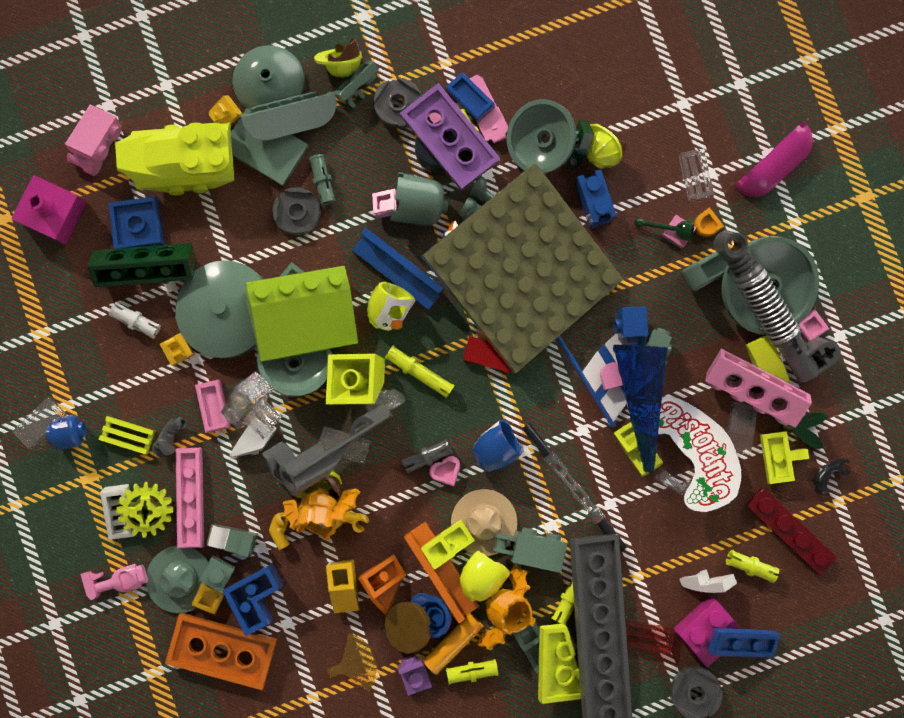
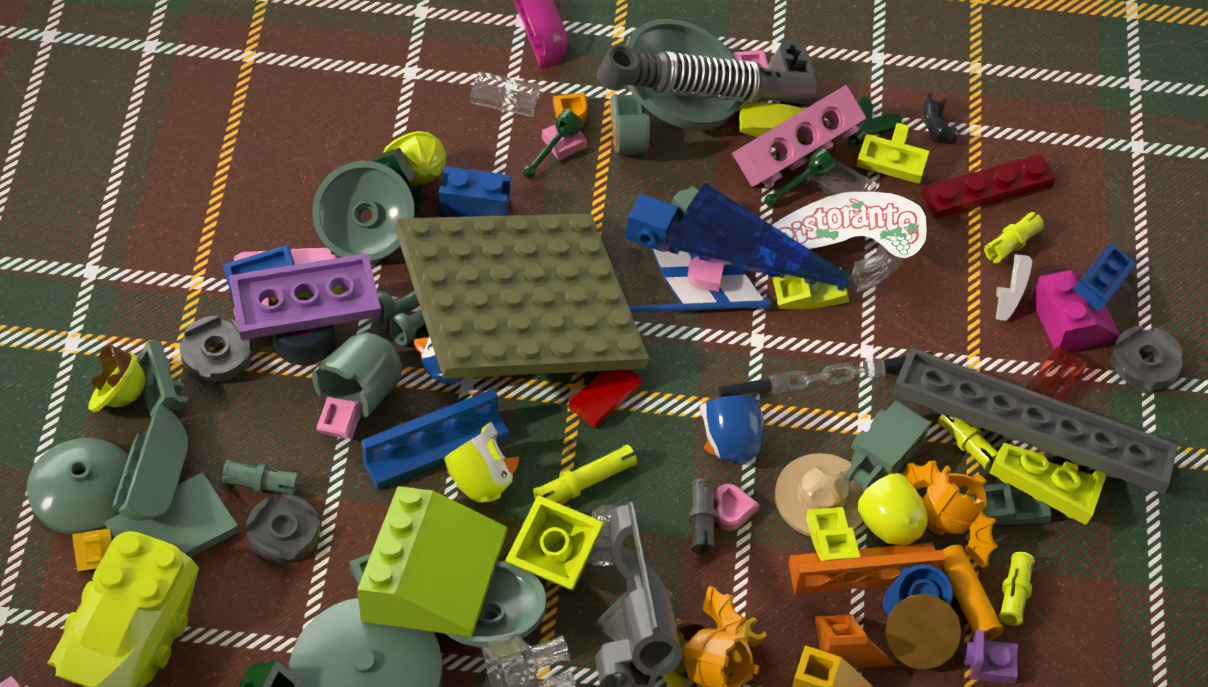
camera: 65 degrees left, 30 degrees down
(740, 412) = (819, 164): none -> dark green hinge

